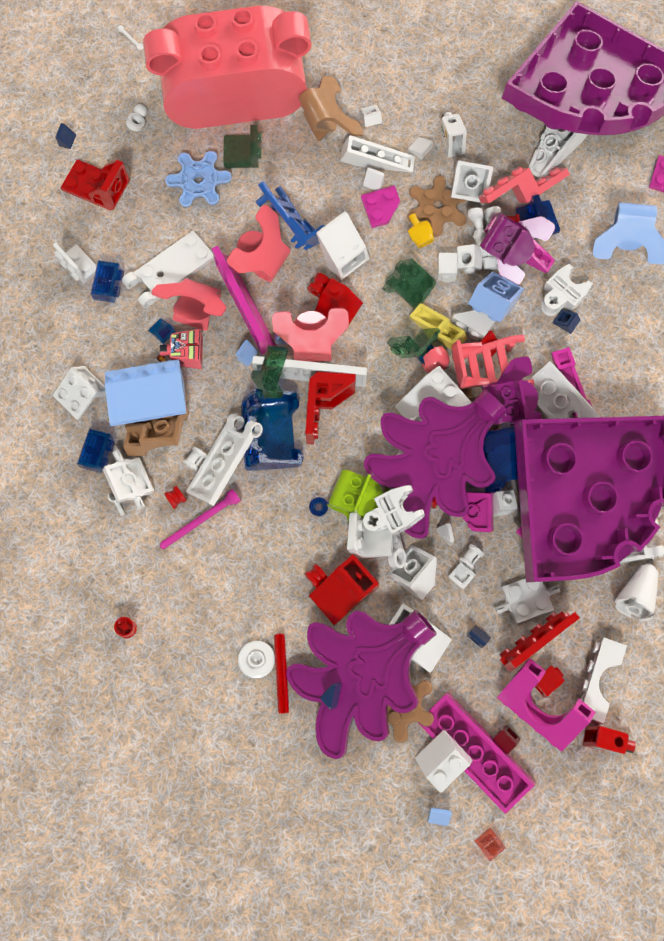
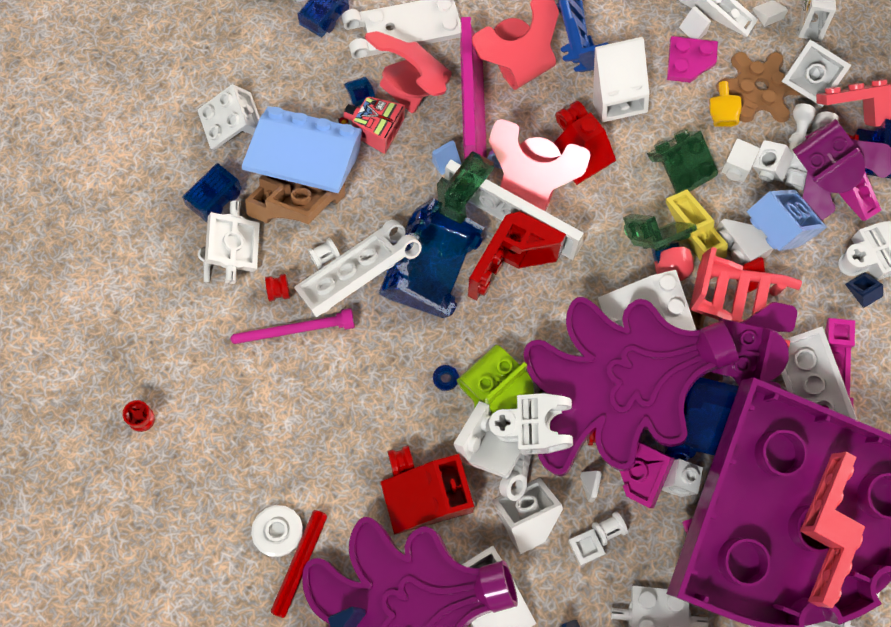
camera: 20 degrees right, 5 degrees down
(611, 494) = (833, 530): none -> coral bracket

